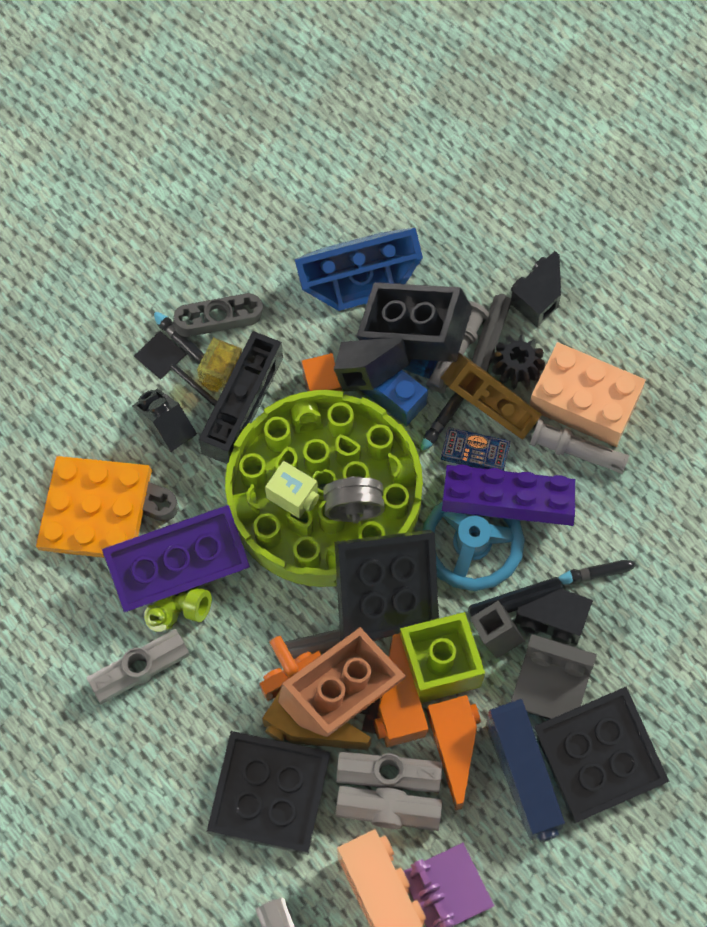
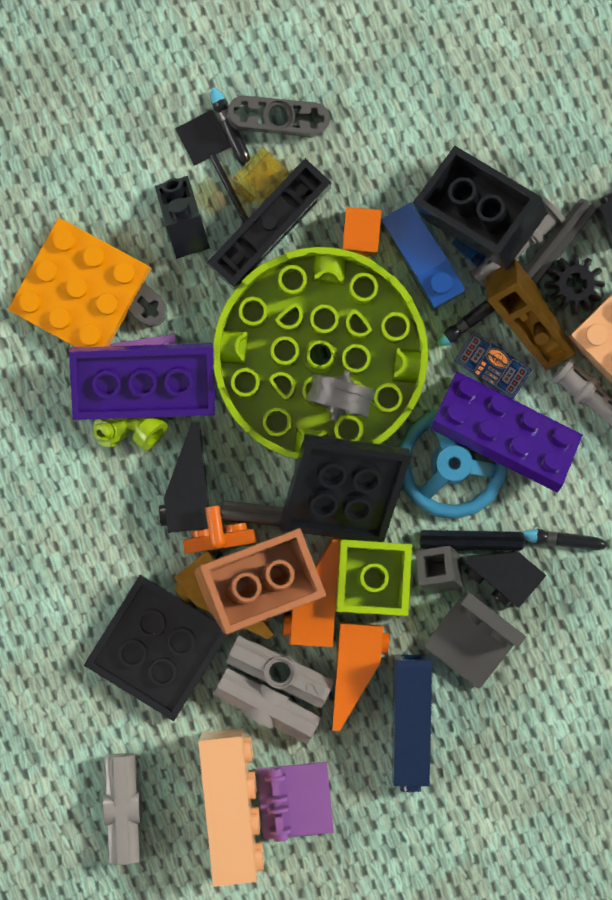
camera: 20 degrees right, 20 degrees up
(157, 654) = (47, 478): light grey piece -> none
(248, 643) = (188, 487): none -> black slope
(292, 490) = (283, 359): yellowish green brick -> none
(346, 271) = (436, 115): blue wedge -> none
(369, 362) = (413, 239): black slope -> none
(600, 754) = (491, 728): black plate -> none

